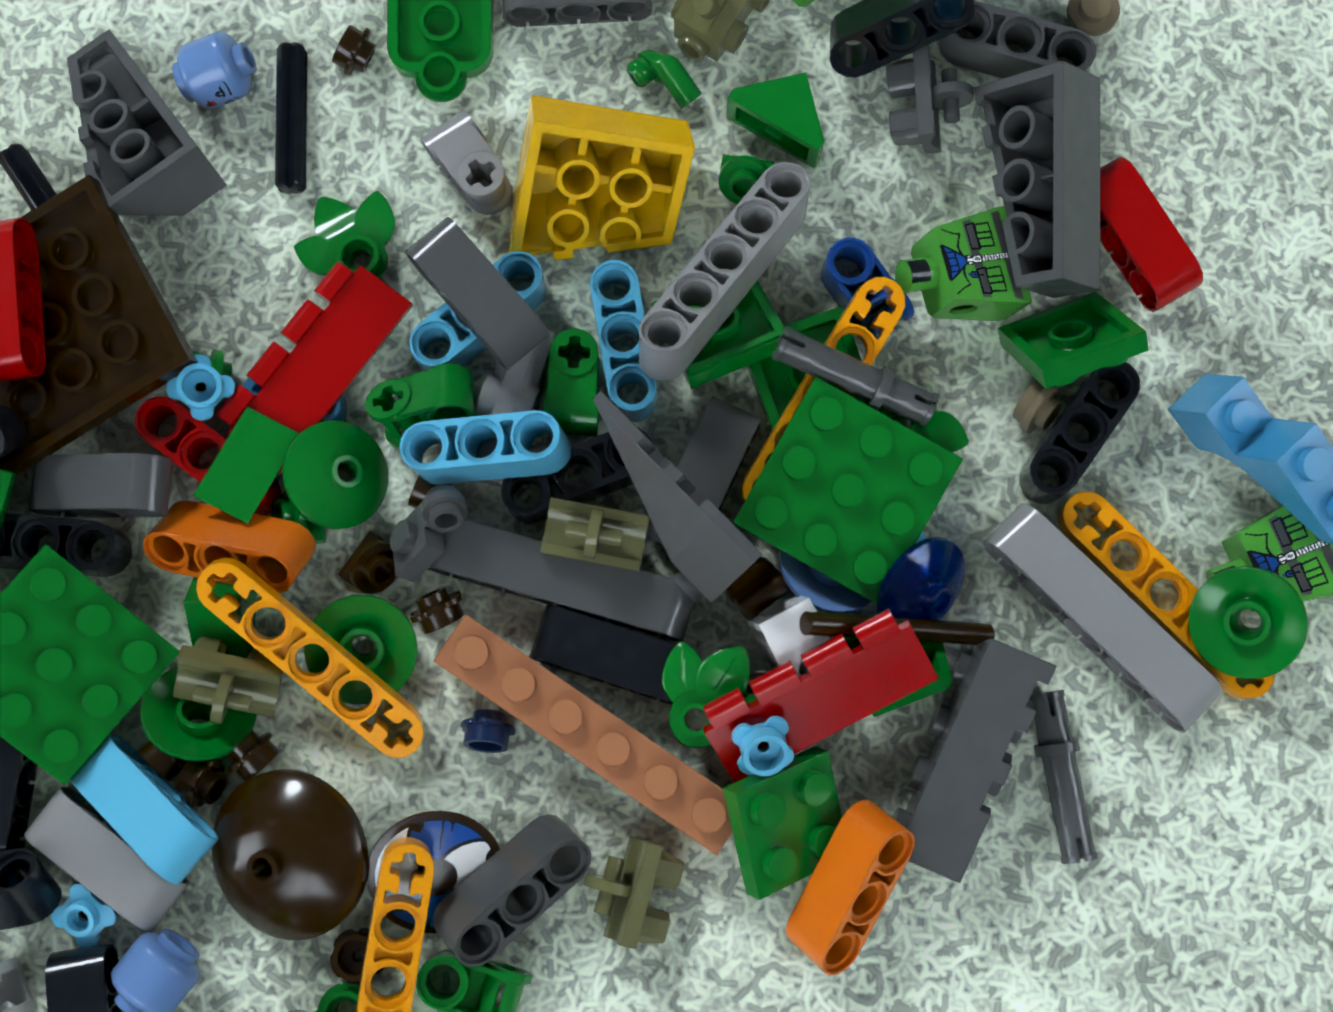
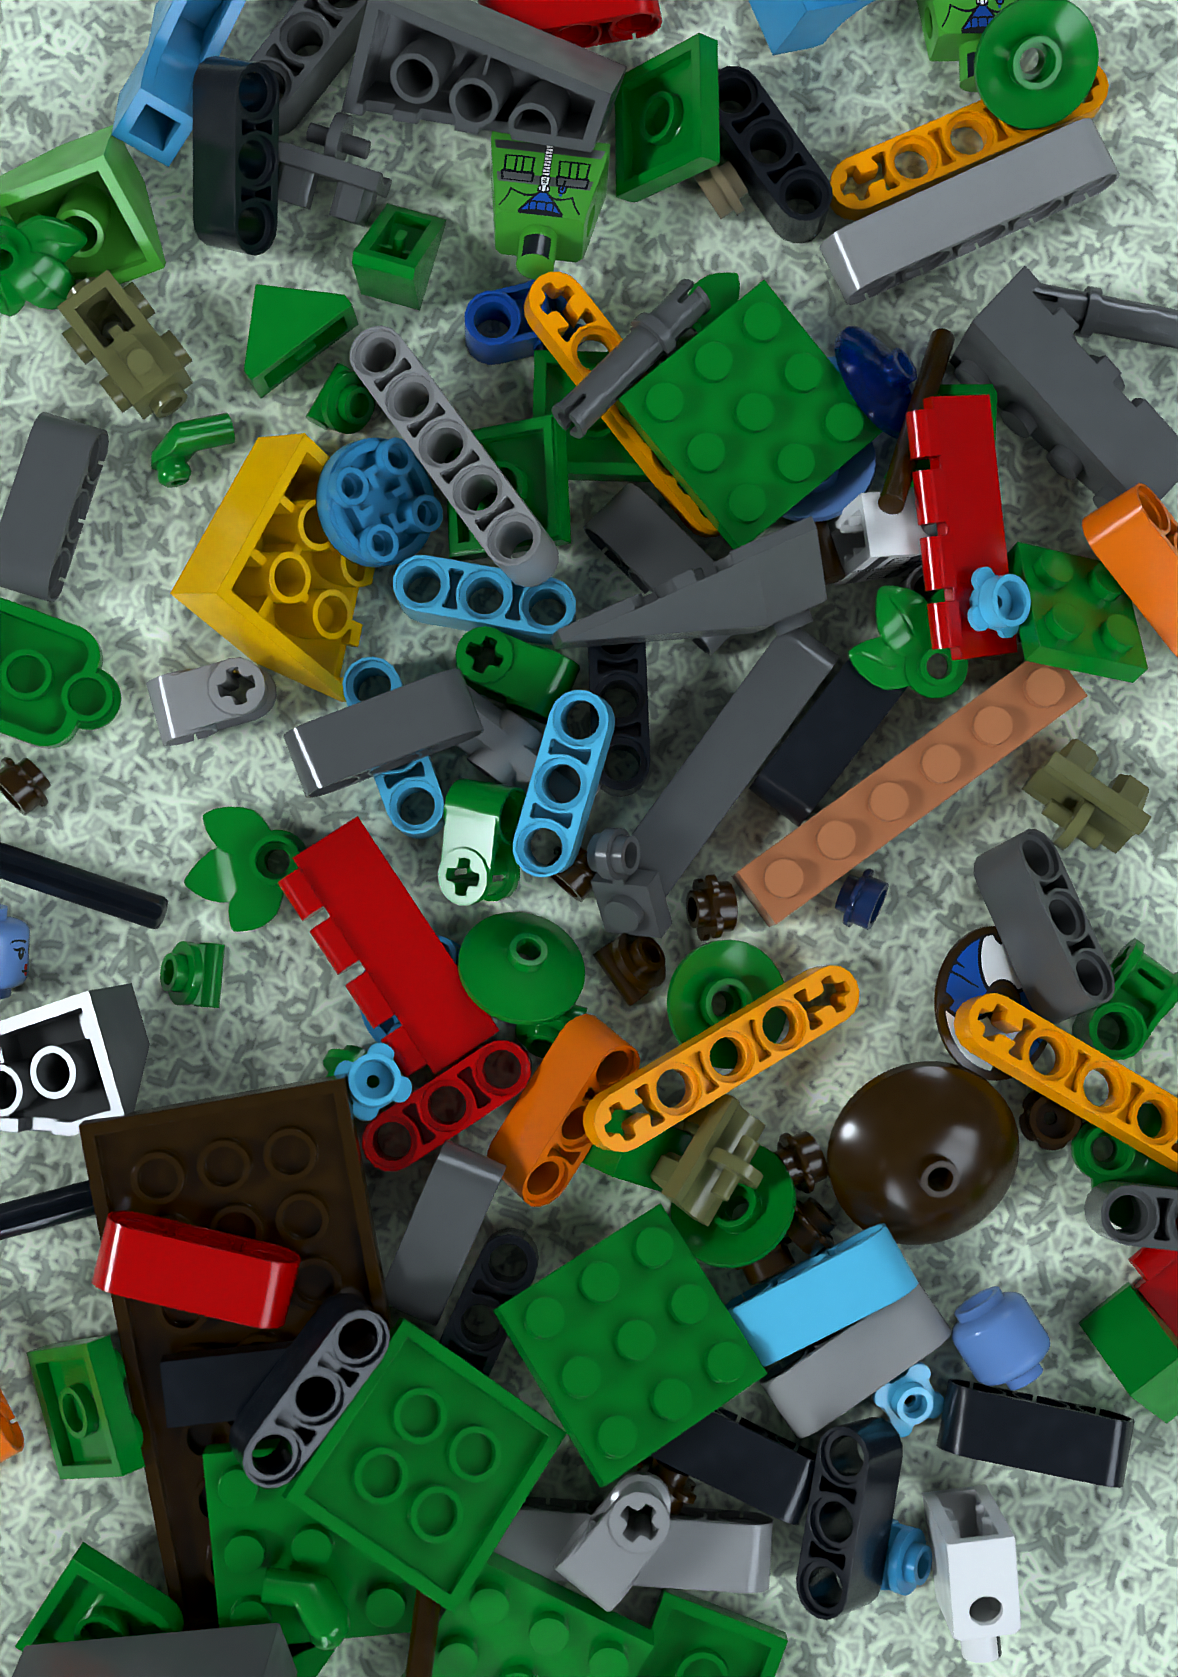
camera: 75 degrees left, 5 degrees up
(246, 465) = (481, 1058): green sticker -> none
(250, 230) = (194, 974): none -> green plate
(595, 534) = (699, 702): olive hips -> none
(665, 224) = (377, 502): none -> dark azure tile
(879, 174) = (398, 255): none -> green slope

